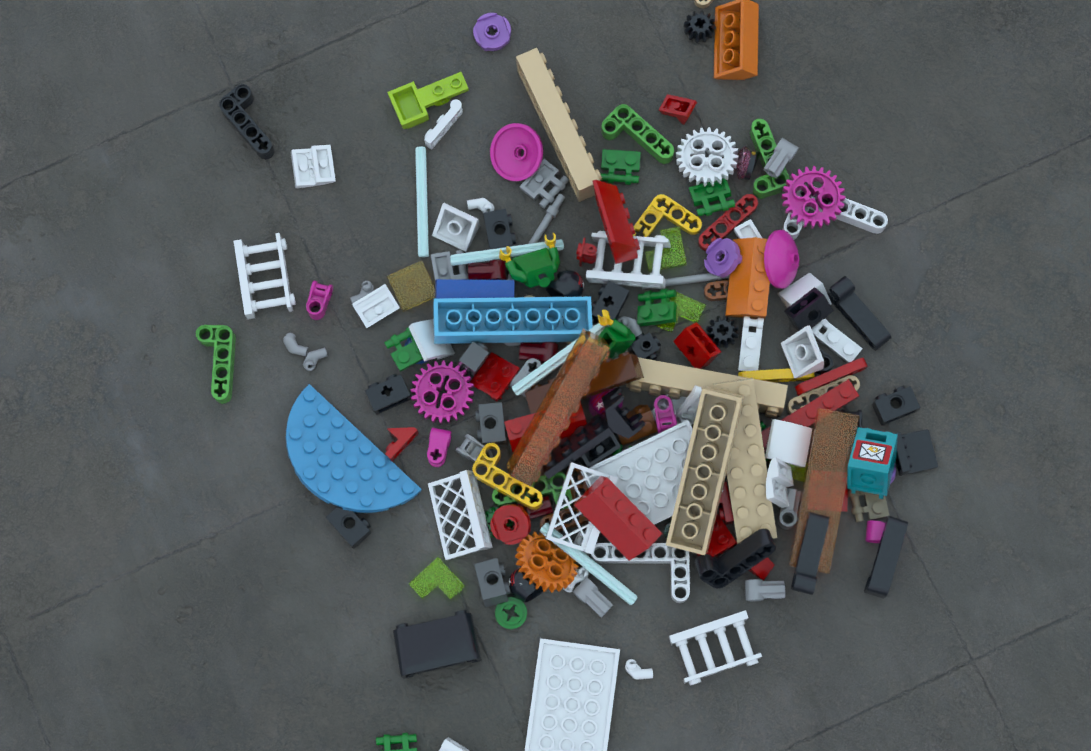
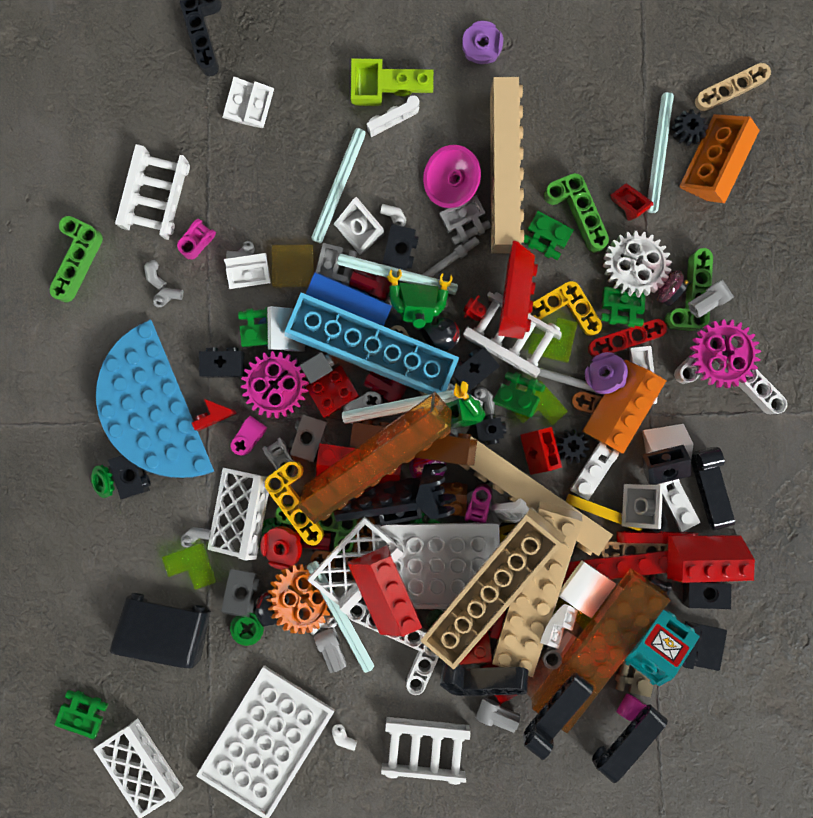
camera: 20 degrees right, 10 degrees up
(322, 540) = (102, 481): none -> green gear
(427, 552) = (193, 534): none -> light grey arm
(684, 57) = (660, 150): none -> light aqua axle
(781, 259) = (664, 402): dark pink dish -> none
(881, 373) = (709, 559): none -> red slope

